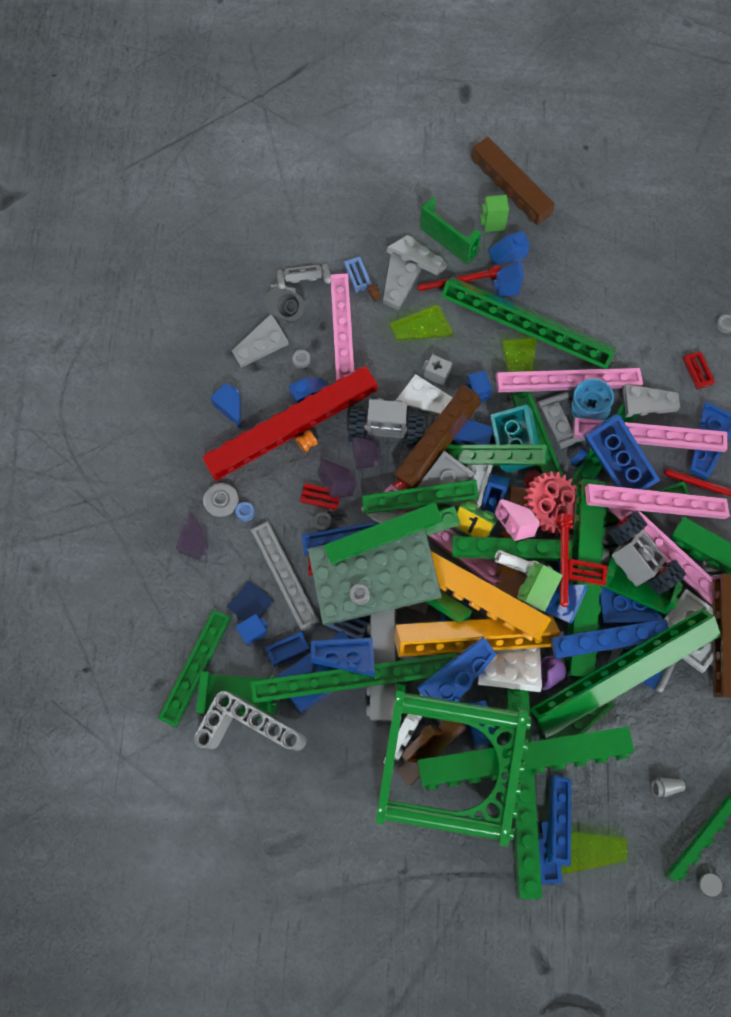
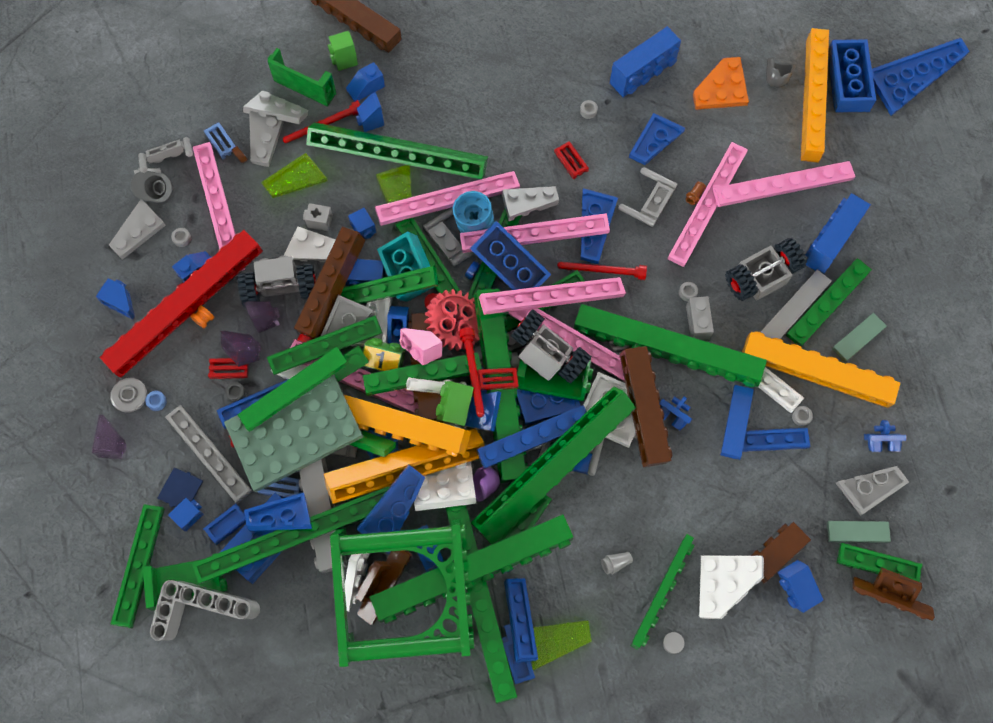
camera: 15 degrees left, 0 degrees up
(359, 594) = (282, 453): light grey tile -> none

